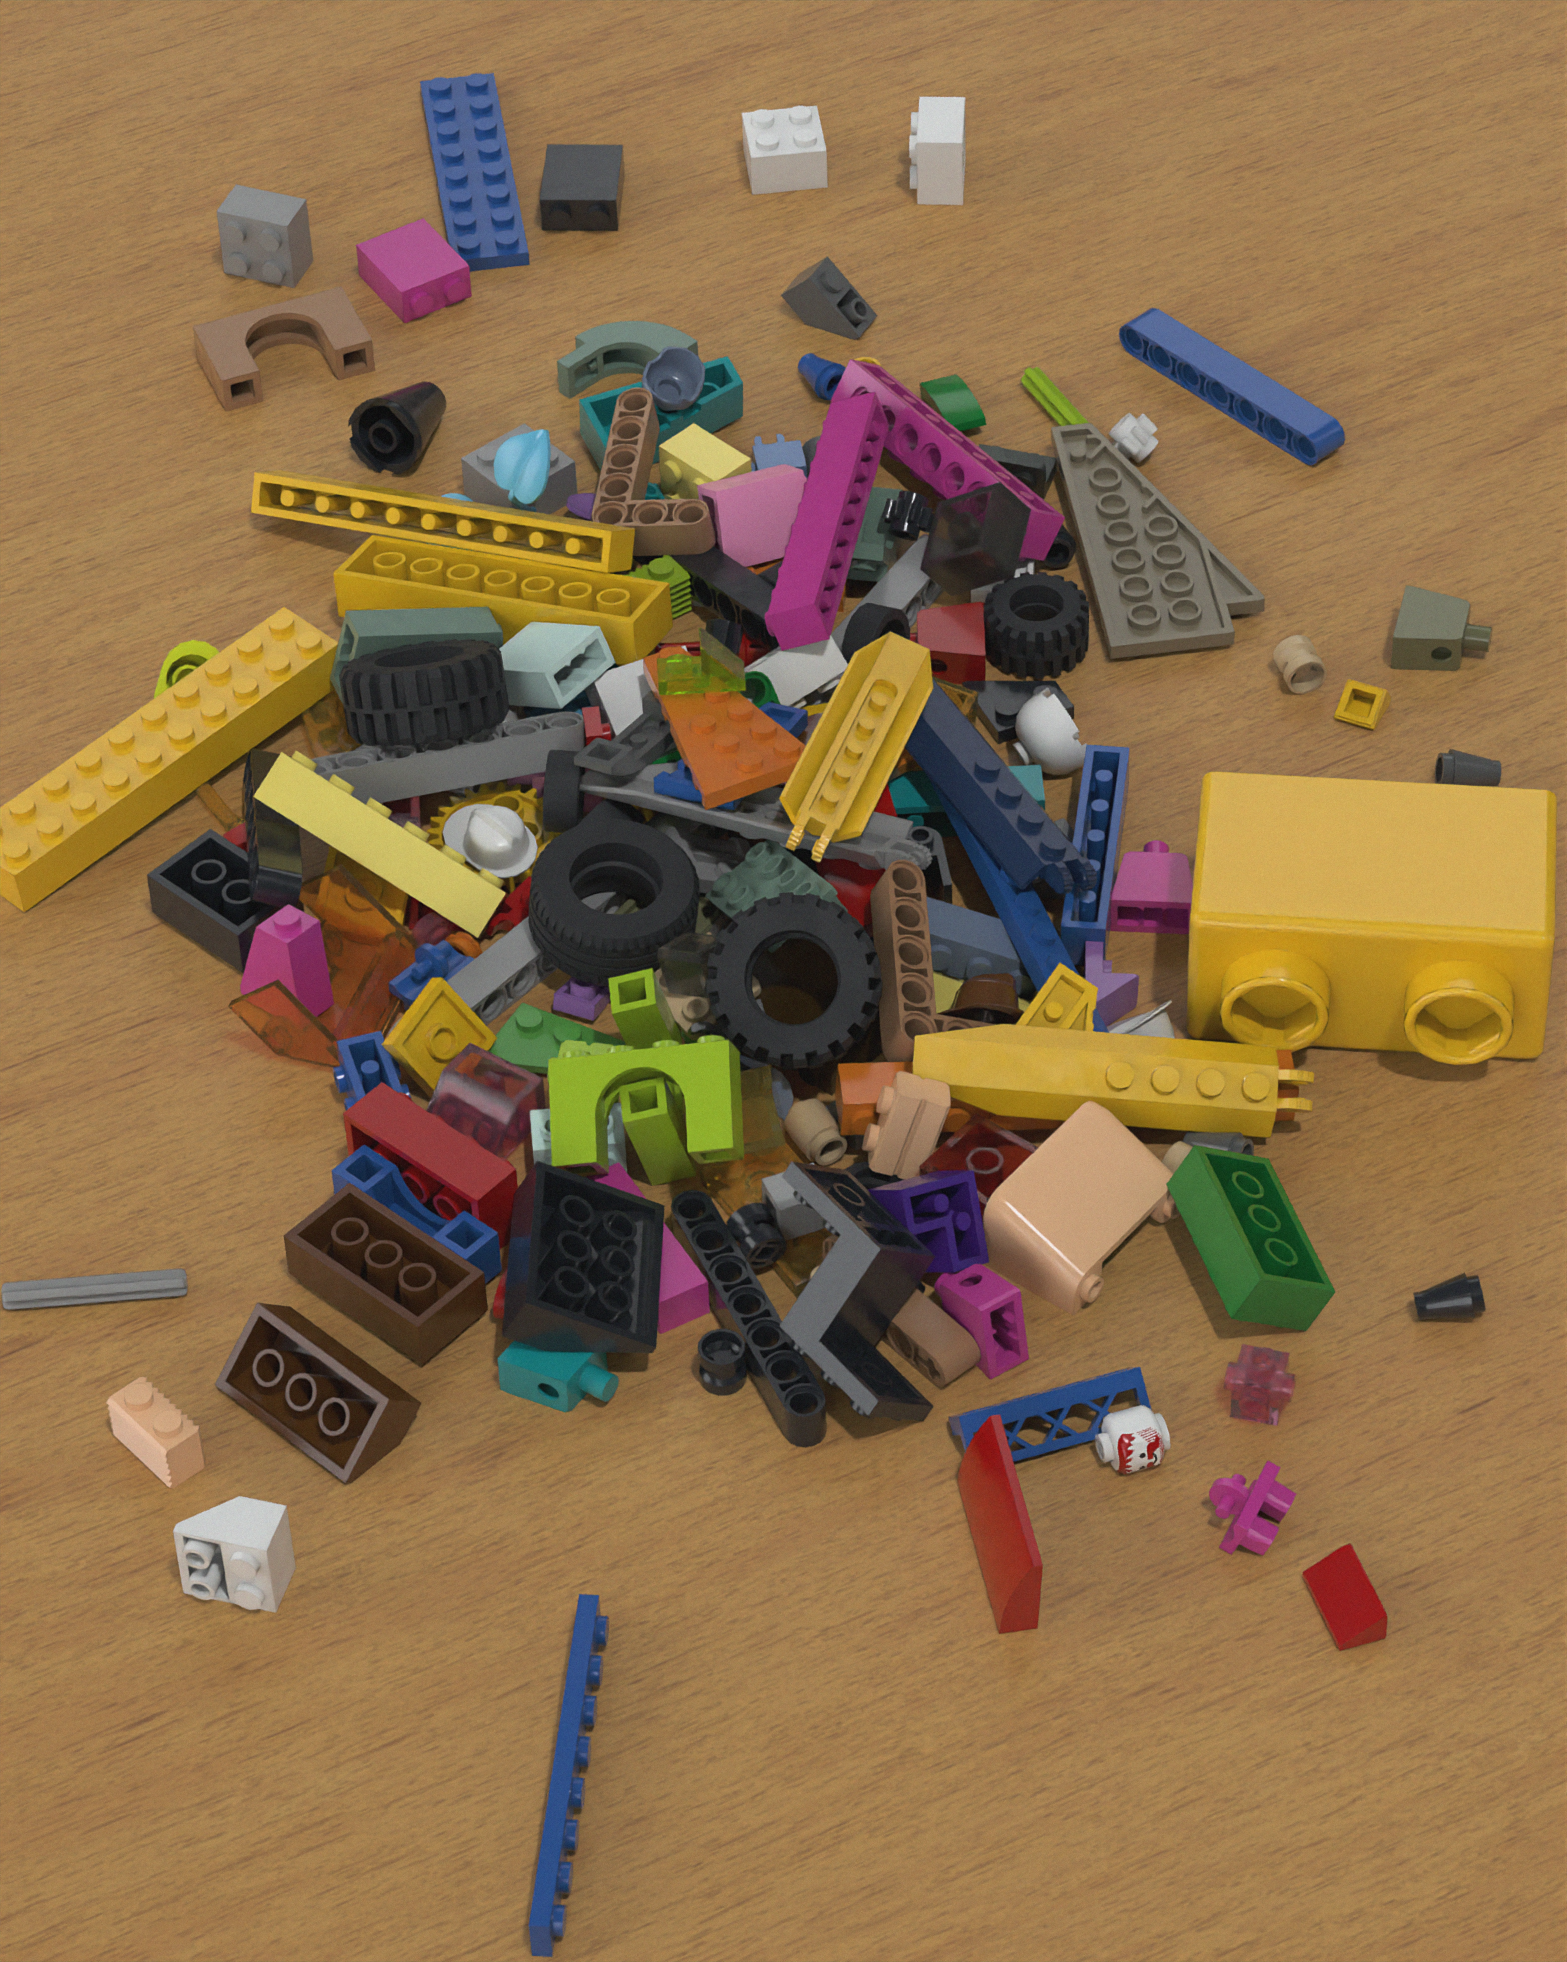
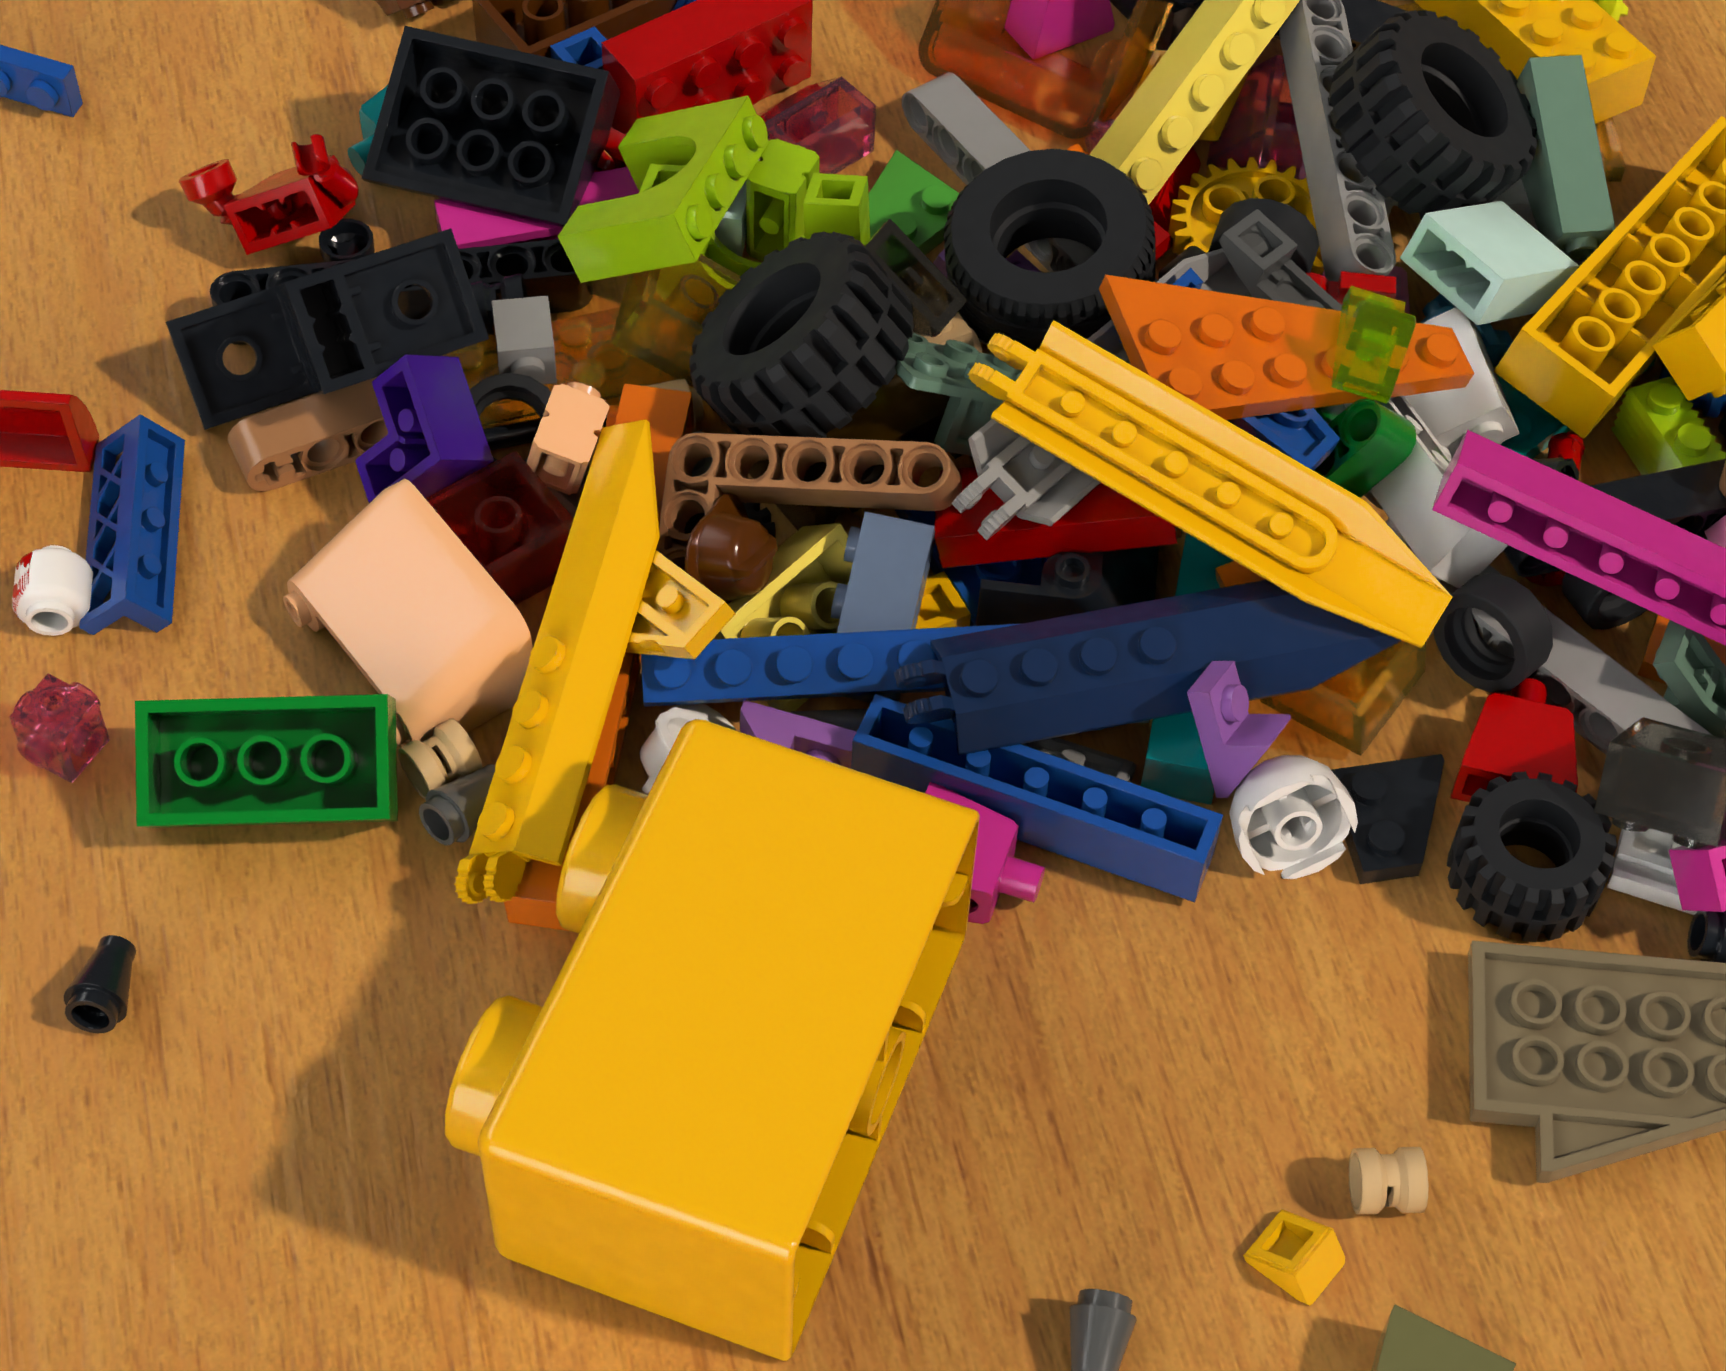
camera: 100 degrees right, 10 degrees up
(364, 1066) = (867, 48): blue brick -> none
(430, 962) = (1028, 116): blue hips -> none
(435, 1033) = (909, 91): yellow plate -> none
(491, 839) = (1215, 186): white piece -> none
(689, 1392) = (284, 204): none -> red torso
(990, 1313) = (287, 480): dark pink torso -> none
(1024, 737) = (1227, 731): none -> medium lavender slope

